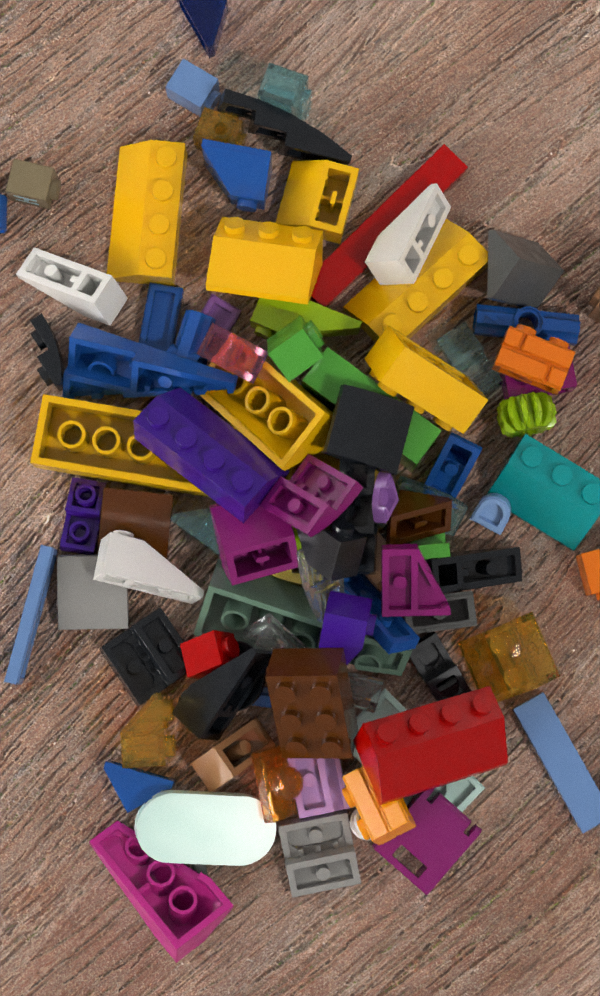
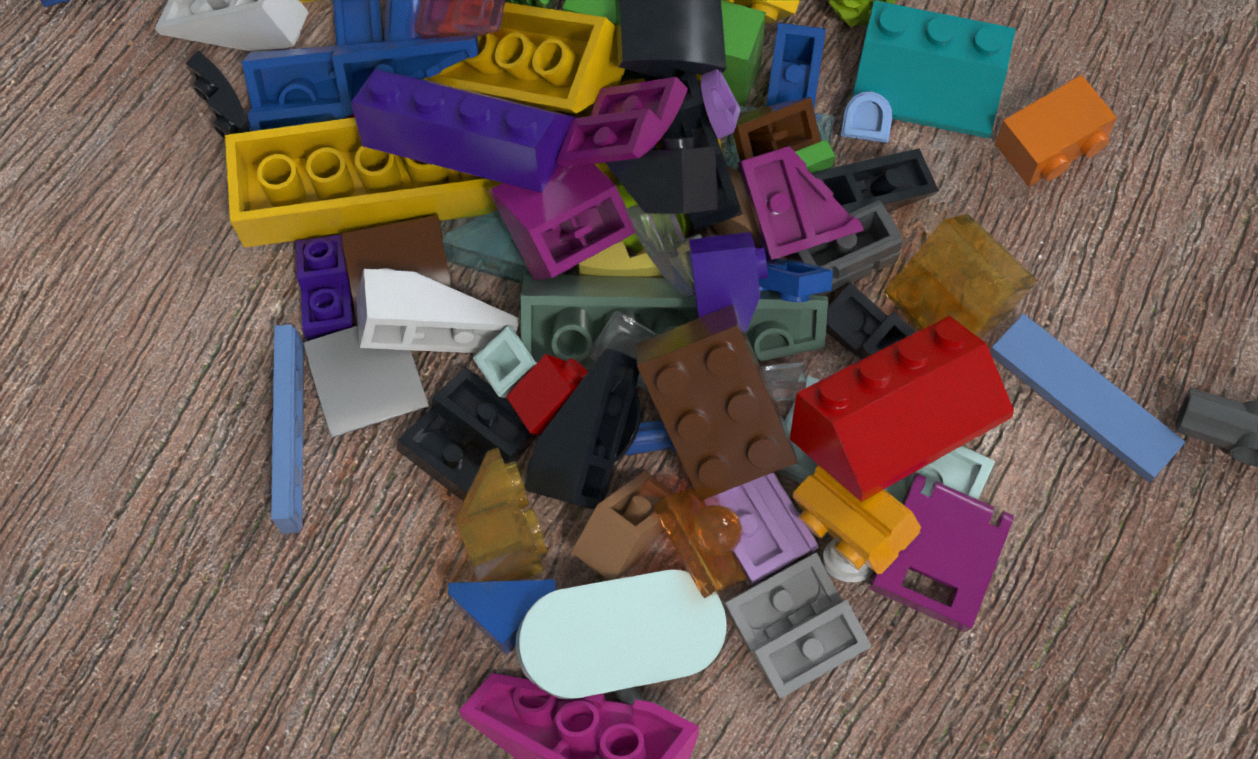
camera: 10 degrees left, 15 degrees down
(186, 618) = (504, 361): none -> light aqua slope

